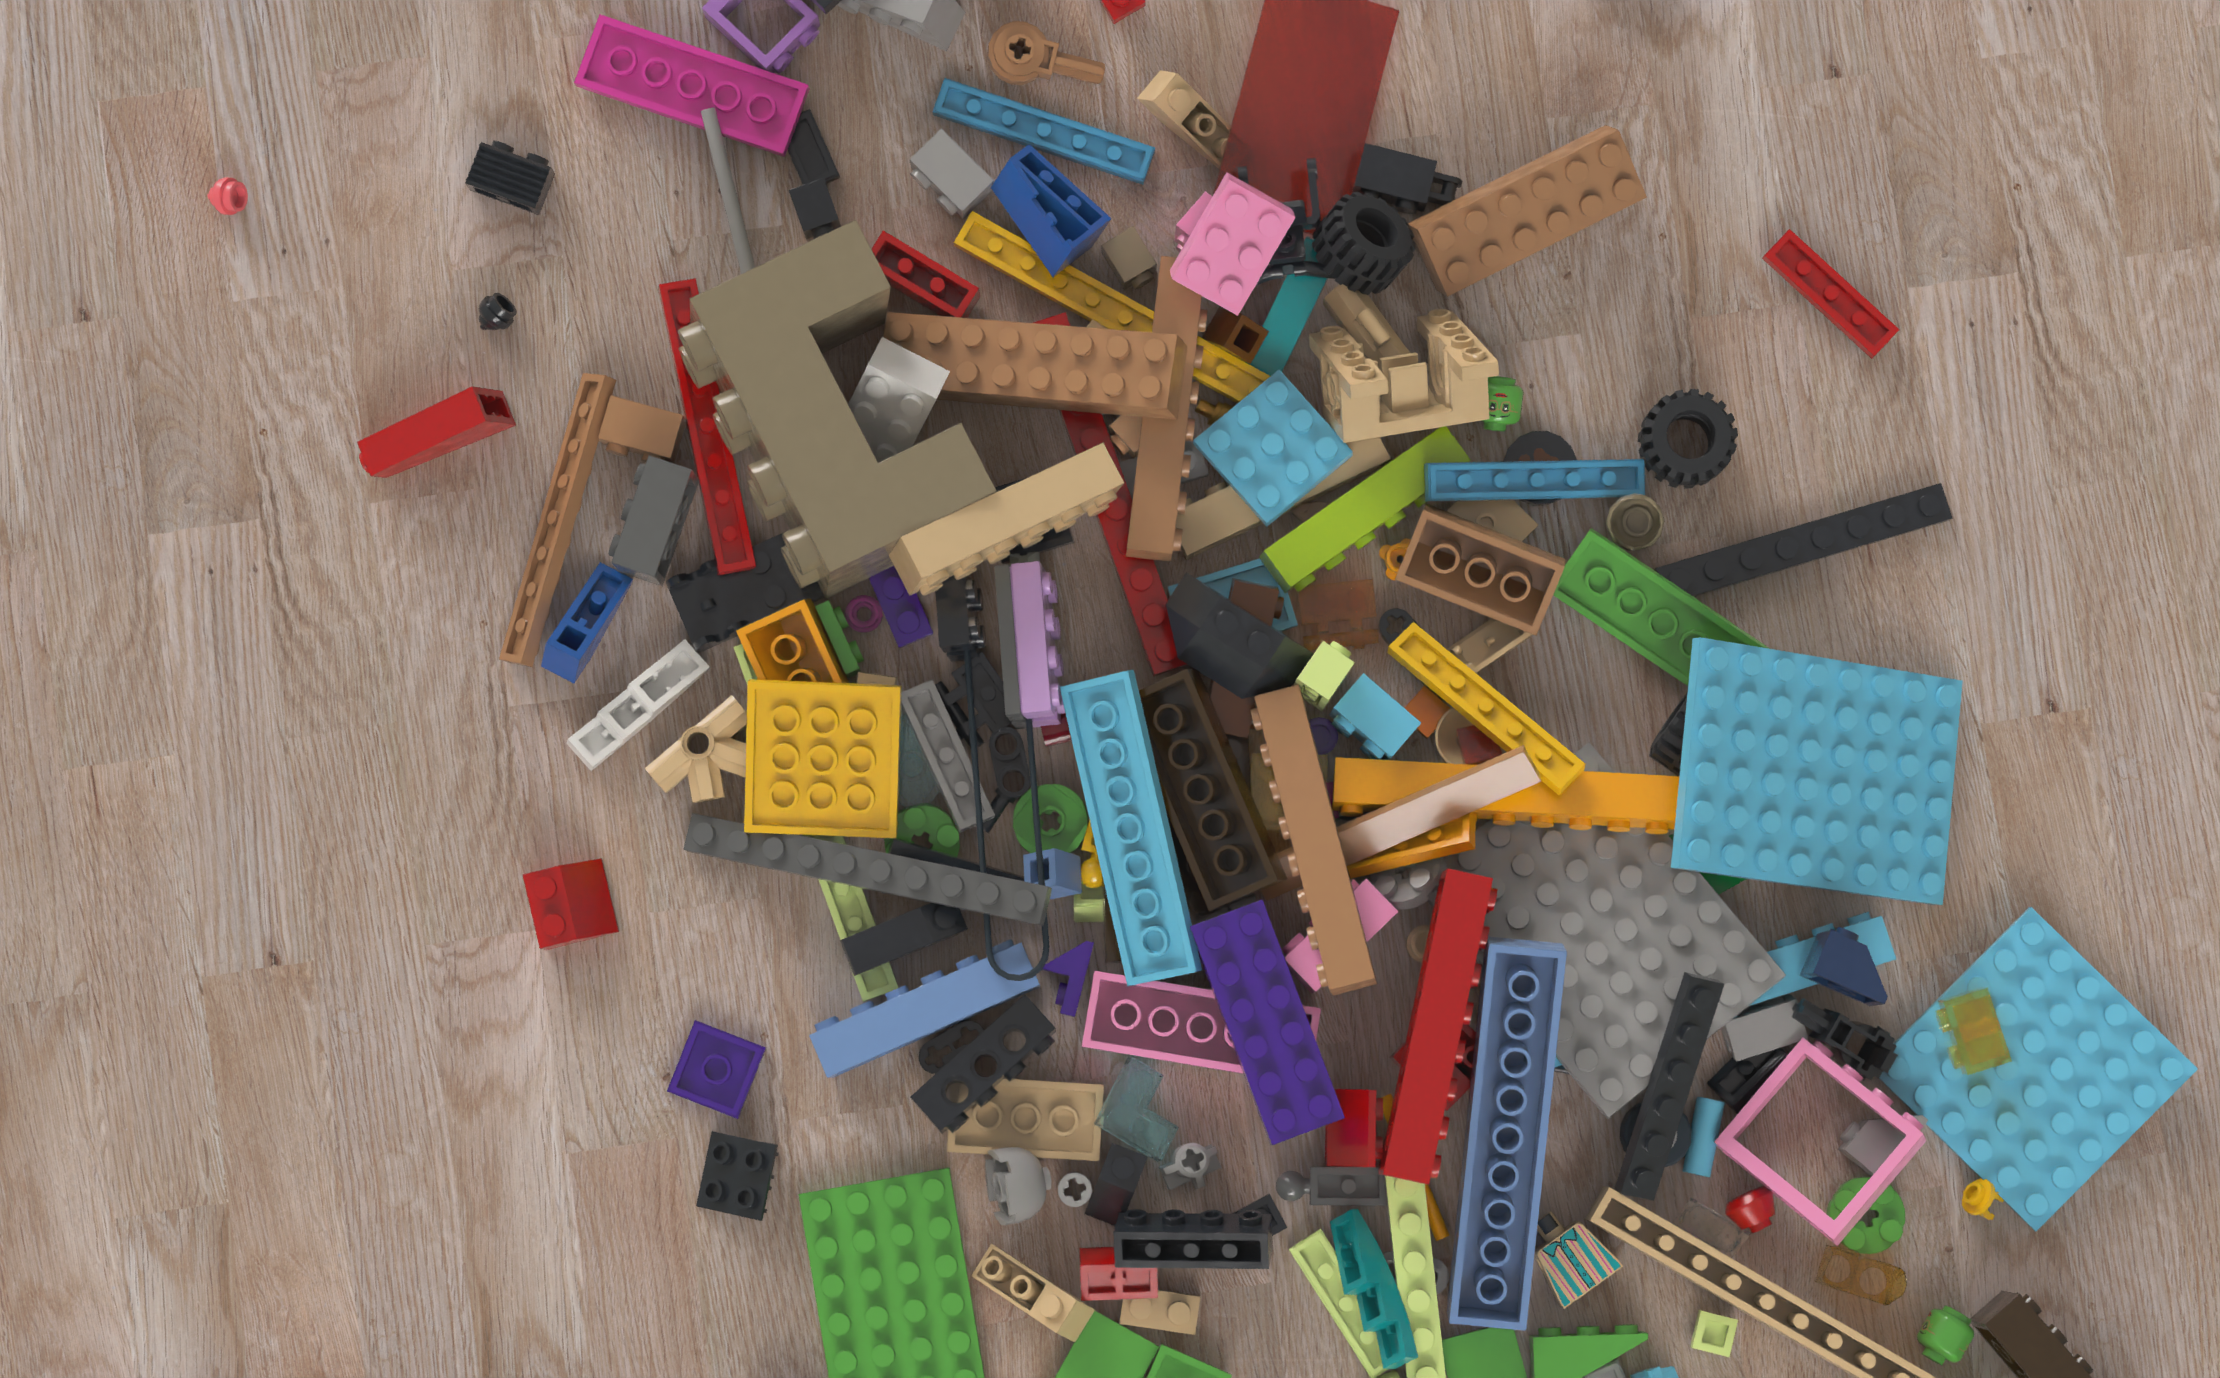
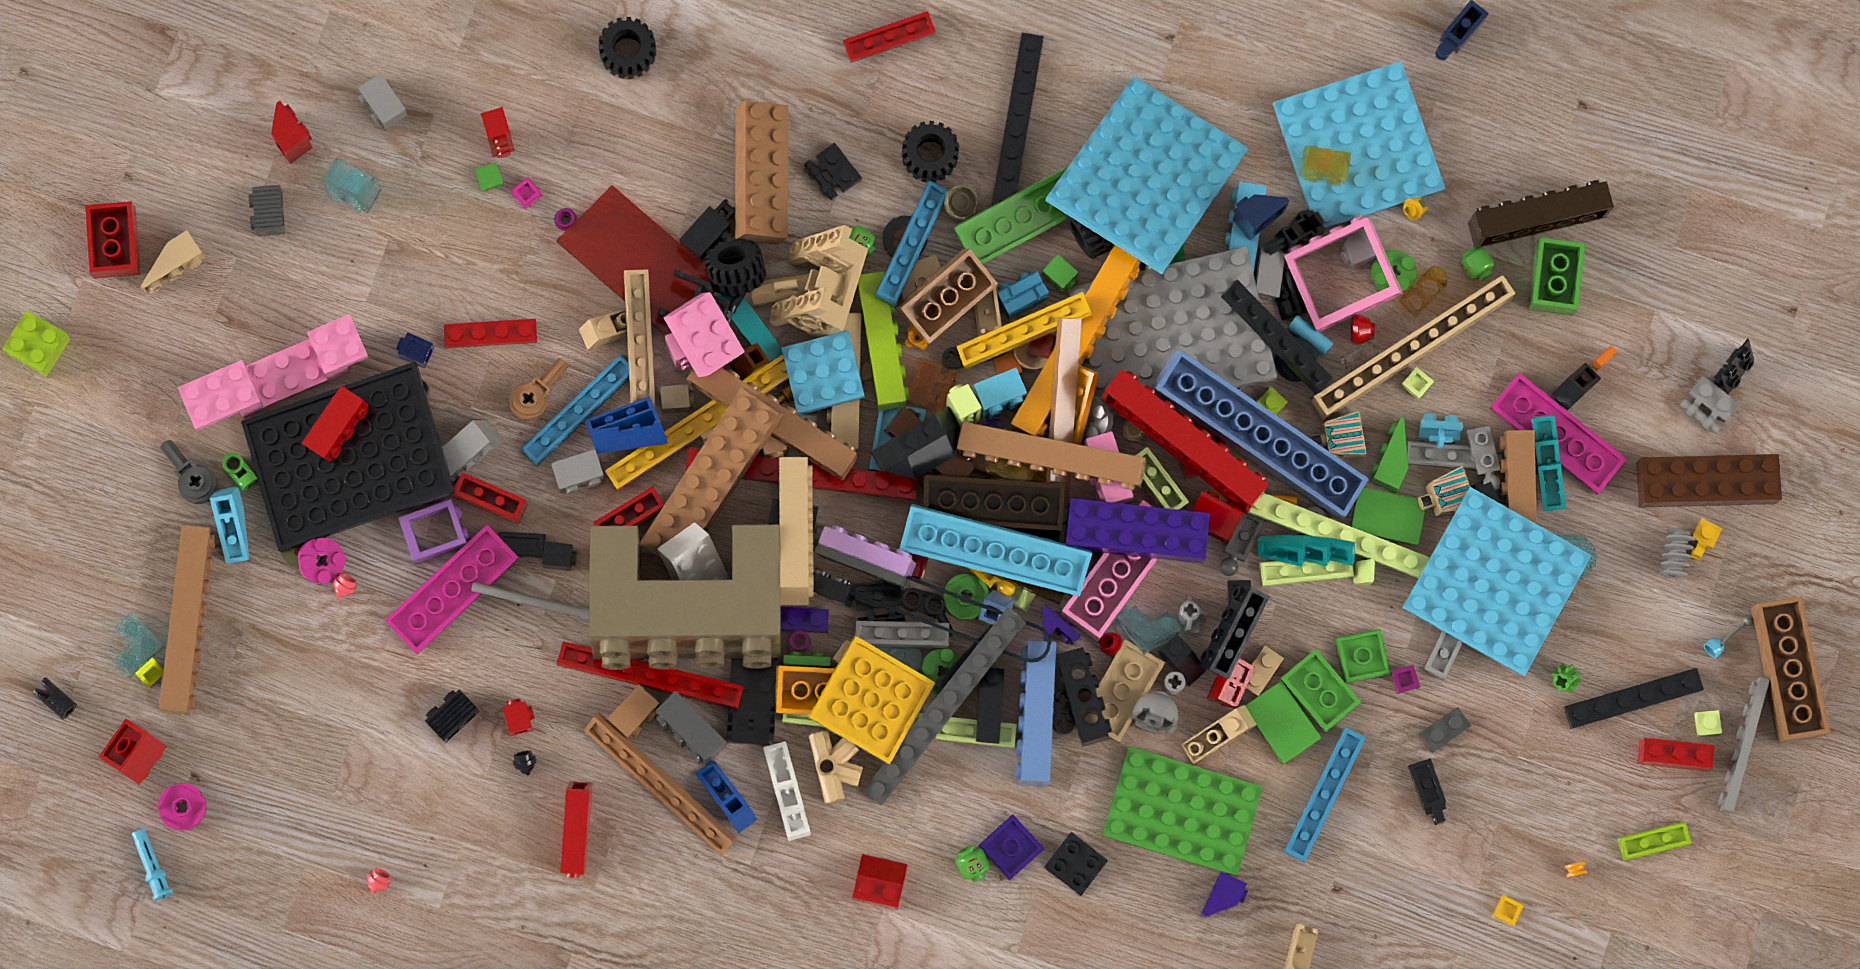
camera: 70 degrees left, 5 degrees down
(554, 271) = (518, 717): none -> red brick
(662, 1024) = (972, 863): none -> bright green head
(847, 70) = (490, 498): none -> red brick
(1087, 1066) = (1108, 639): none -> red plate
(1192, 157) = (639, 335): none -> tan plate
(1360, 1022) = (1160, 485): none -> yellowish green brick
(1543, 680) = (1022, 294): none -> dark azure brick
(1569, 1127) = (1272, 401): none -> lime bracket
(1595, 319) = (839, 169): none -> black plate
(1603, 721) = (1060, 274): none -> bright green brick

